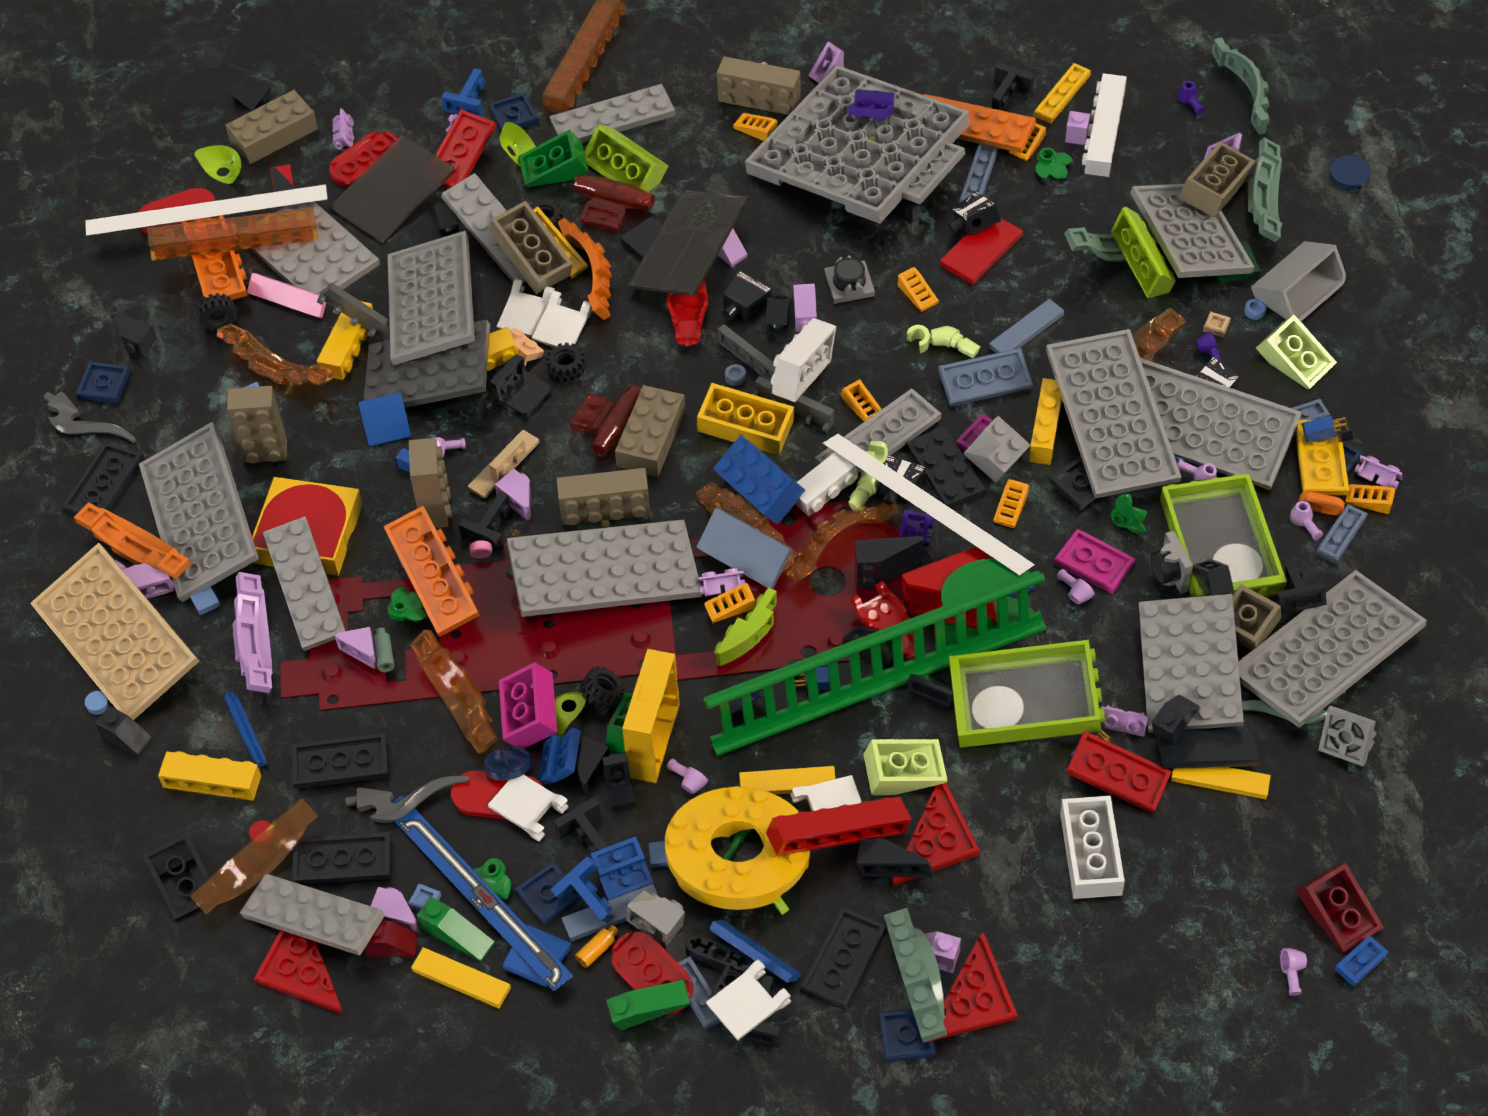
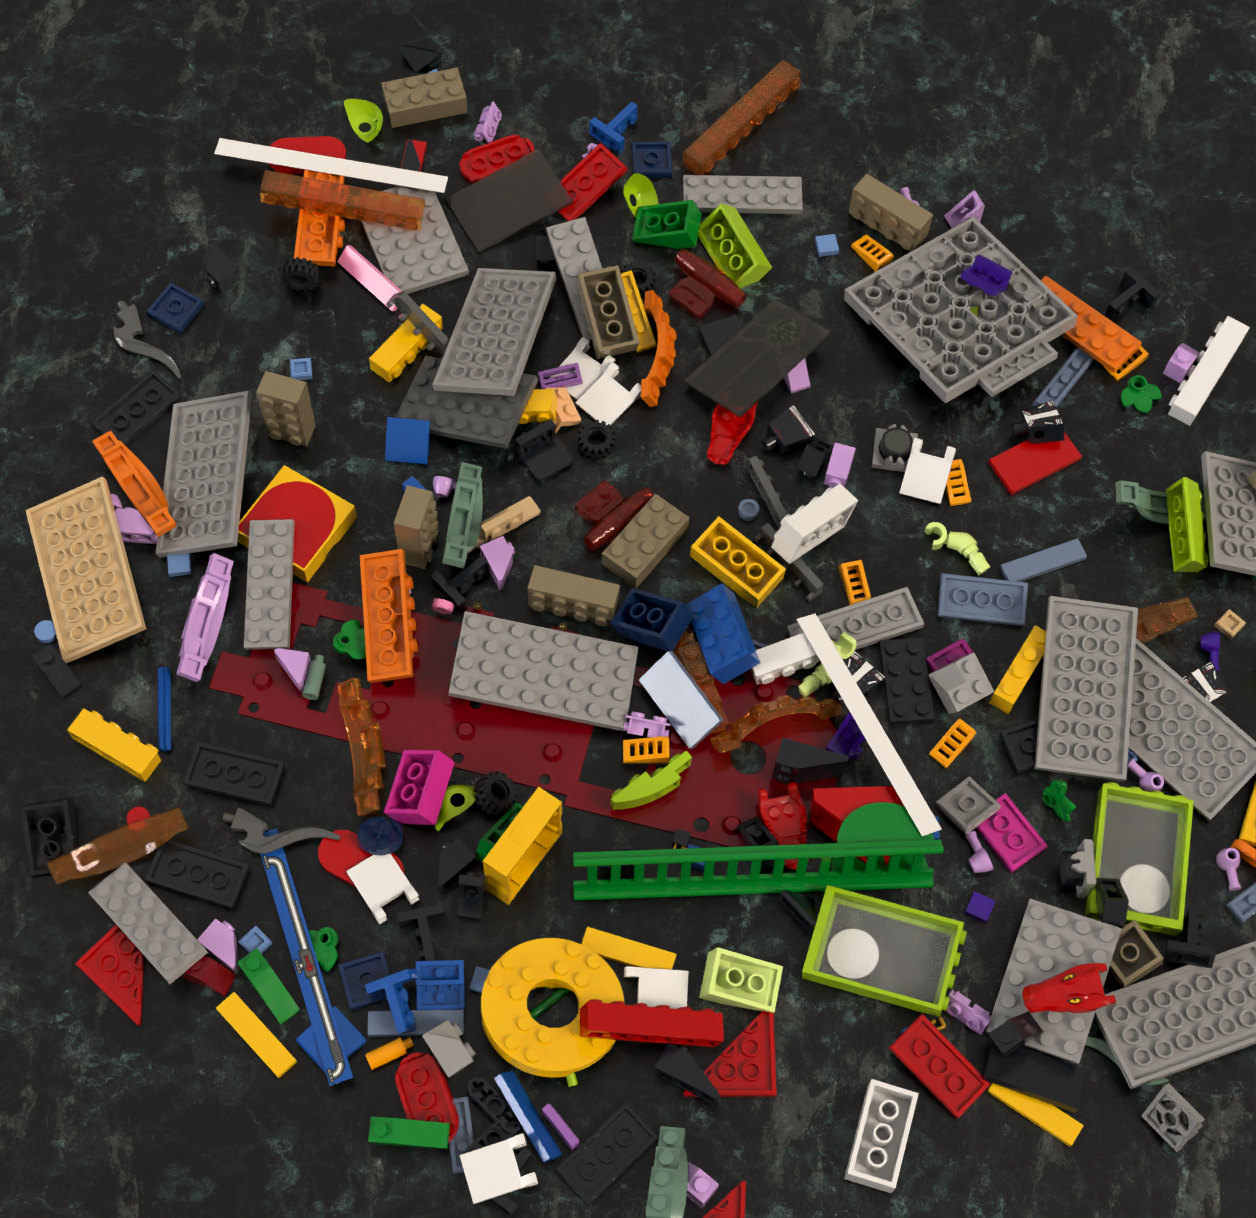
camera: 15 degrees right, 10 degrees up
(269, 364) = (328, 343): clear orange piece -> none
(468, 462) = (464, 516): none -> sand green piece
(512, 322) = (566, 380): none -> medium lavender tile
(558, 757) = (428, 848): blue slope -> none
(686, 490) = (651, 619): none -> dark blue brick
(692, 780) = (540, 917): lavender bar -> none
(710, 133) = (826, 245): none -> medium blue tile
(790, 949) = (560, 1127): none -> medium lavender tile
(888, 290) = (926, 474): none -> white flag
(1049, 549) = (967, 805): none -> light grey tile
(1062, 93) = (1181, 320): yellow tile -> none
(1096, 630) = (979, 907): none -> dark purple tile
(1211, 660) = (1071, 991): none -> red animal

